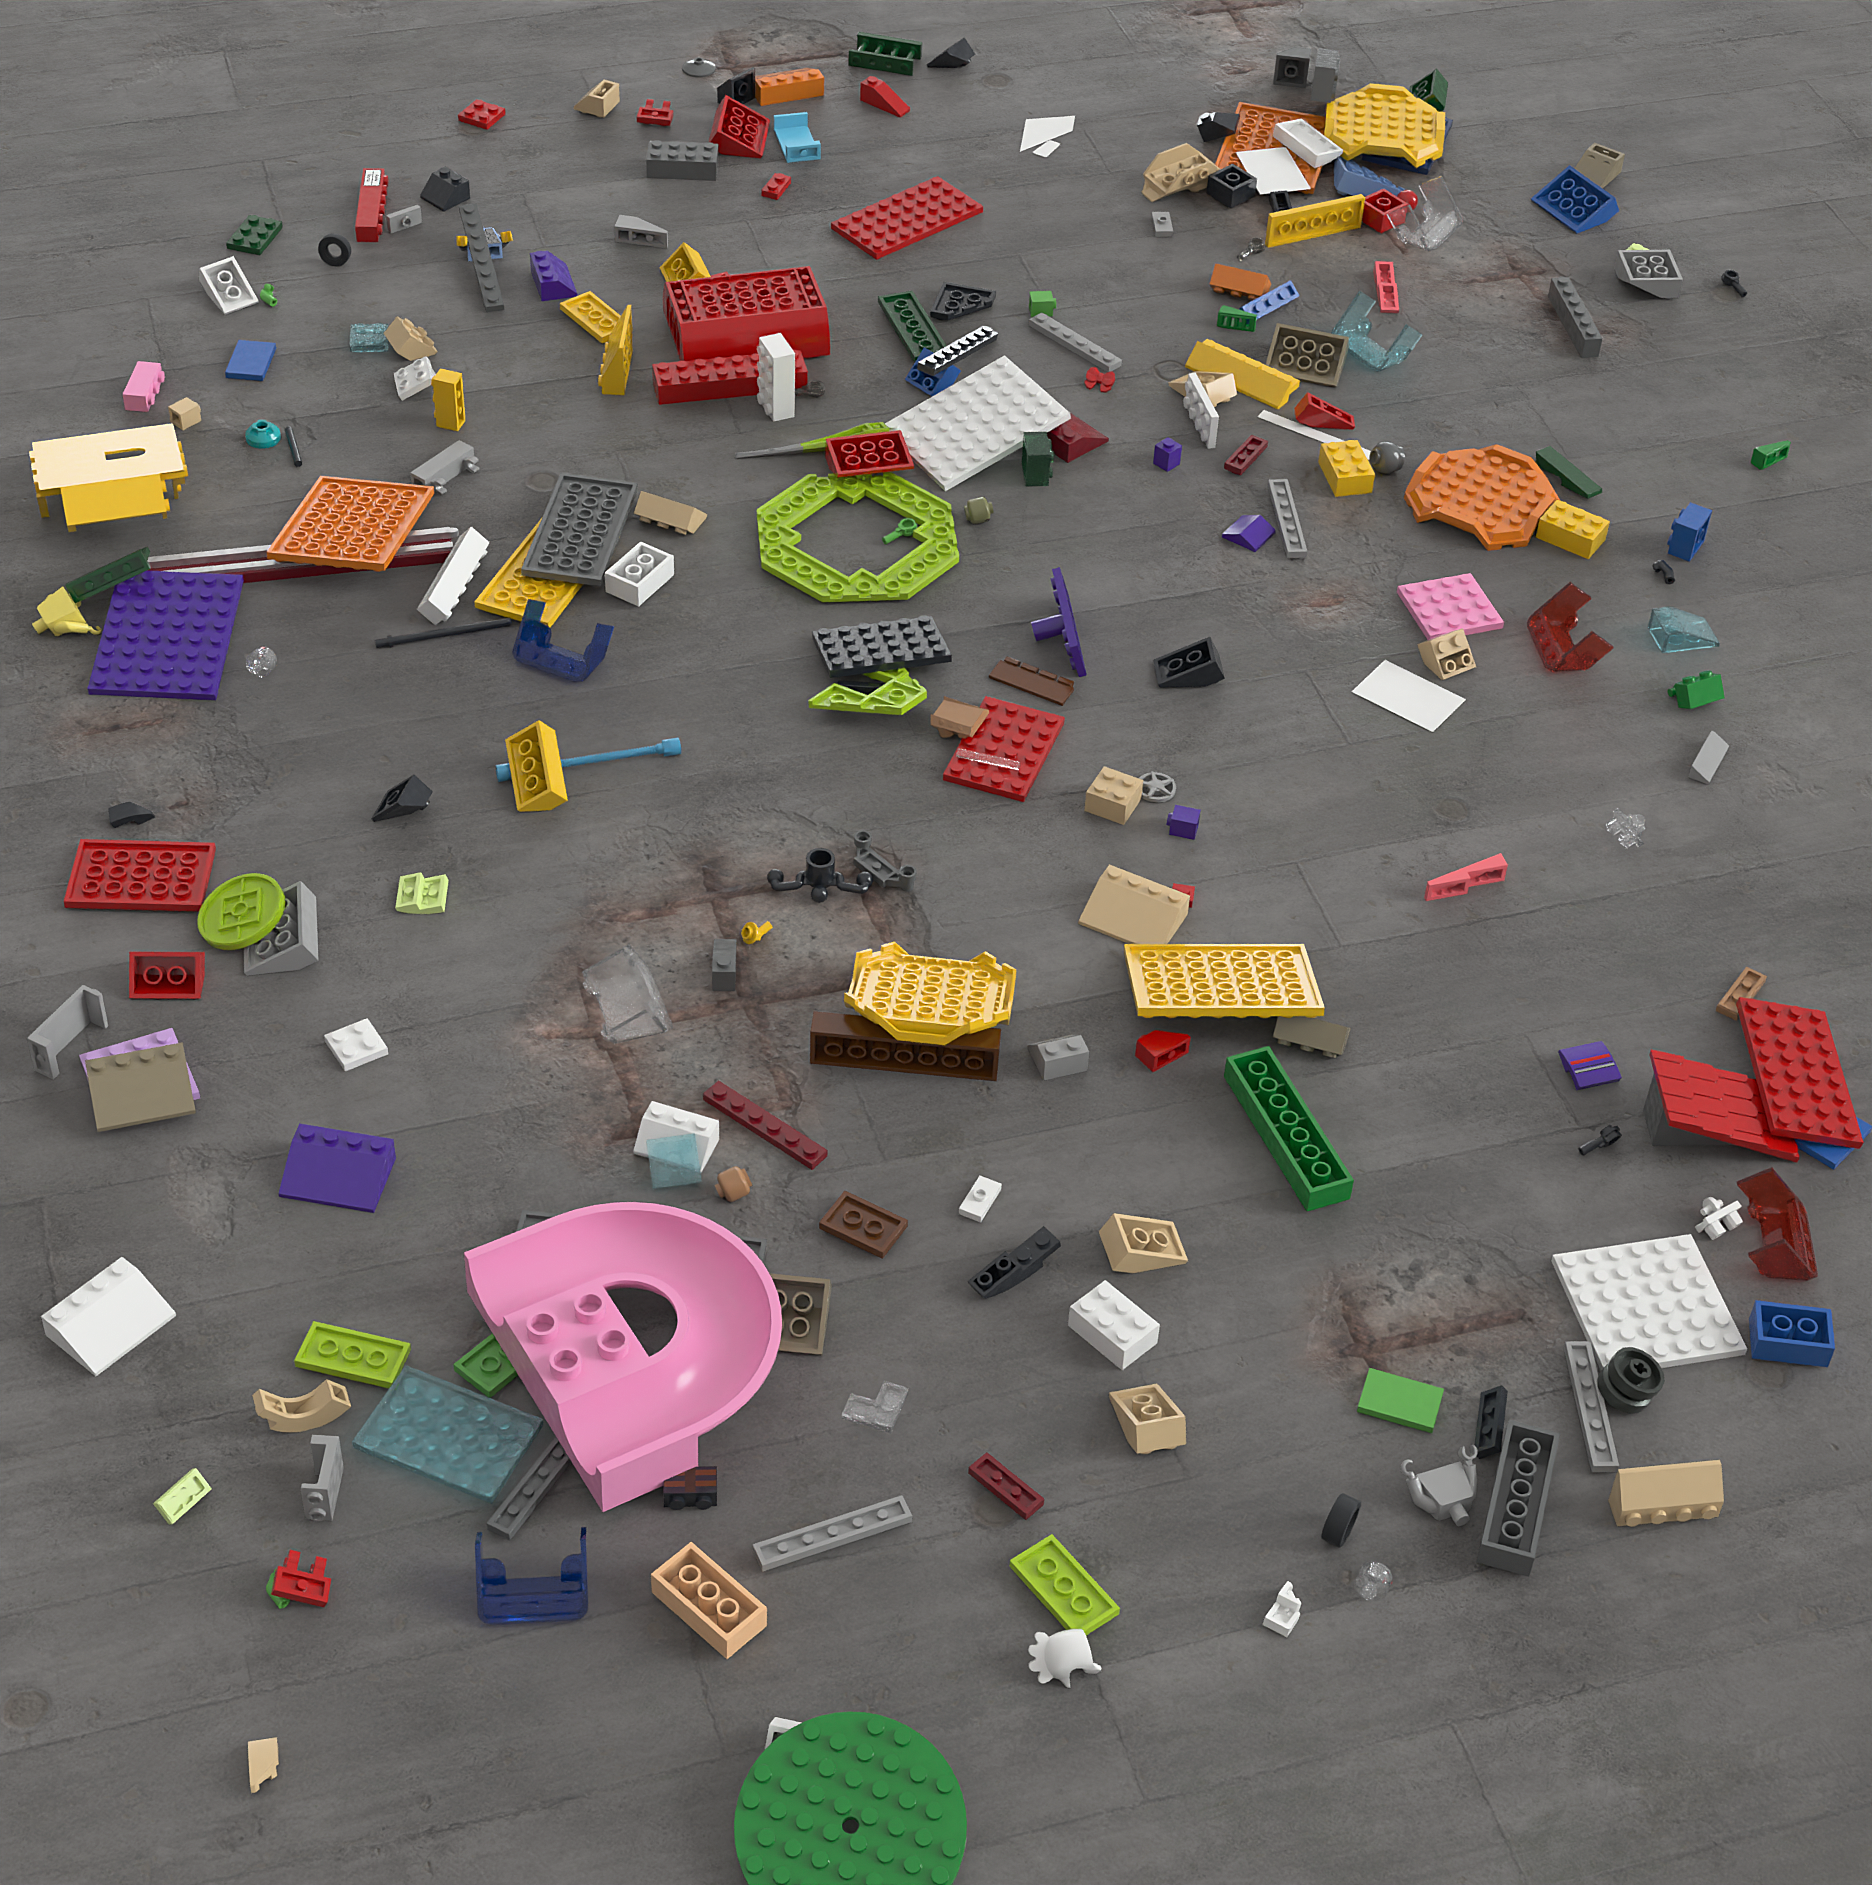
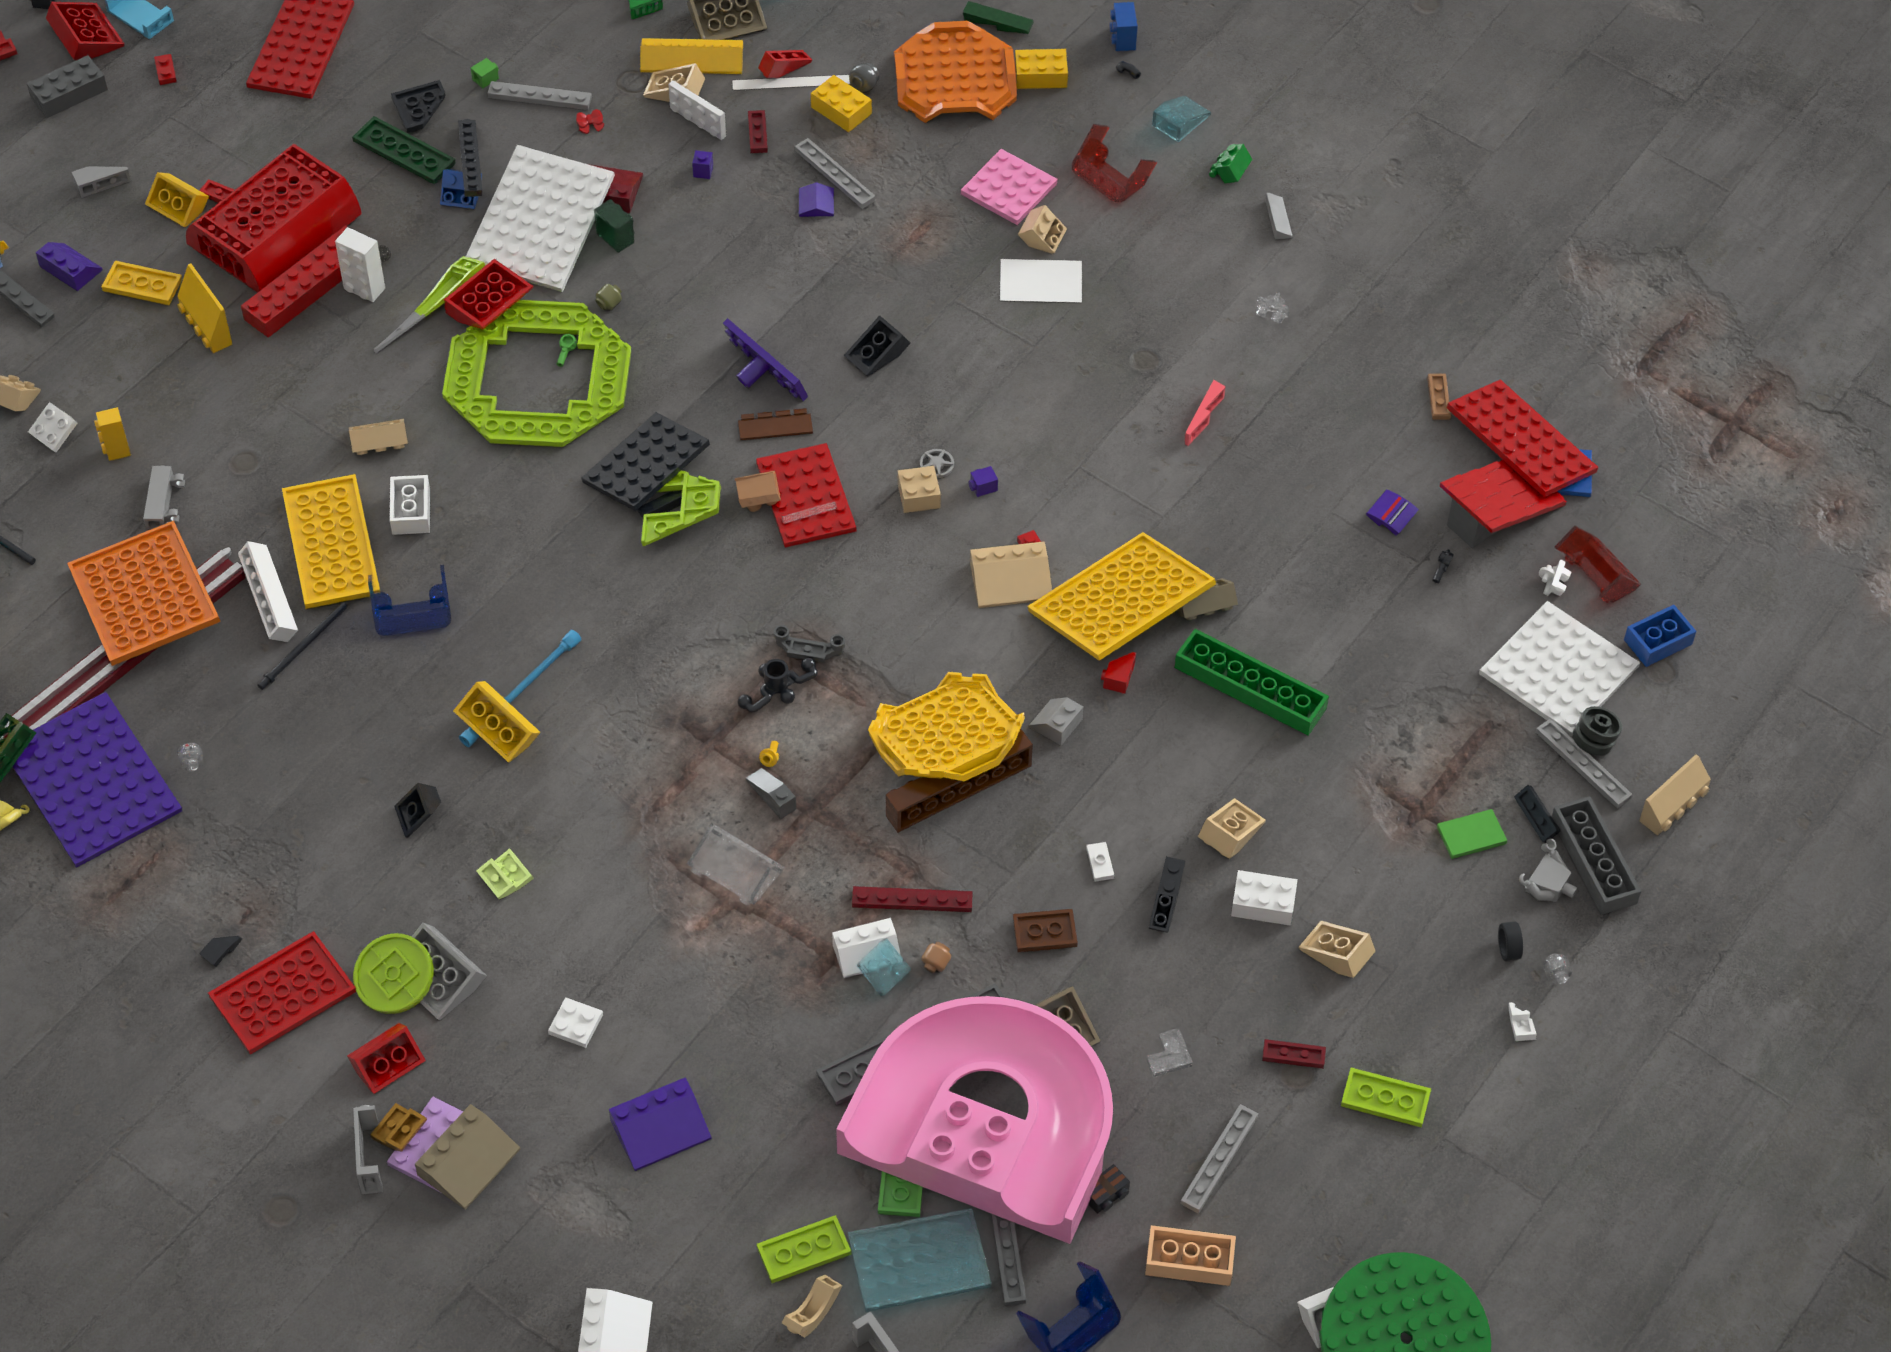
camera: 35 degrees left, 10 degrees up
(115, 1032) = (398, 1127): none -> pearl gold slope
(579, 529) = (328, 492): dark grey plate -> none
(1060, 1655) = (1427, 1142): white piece -> none

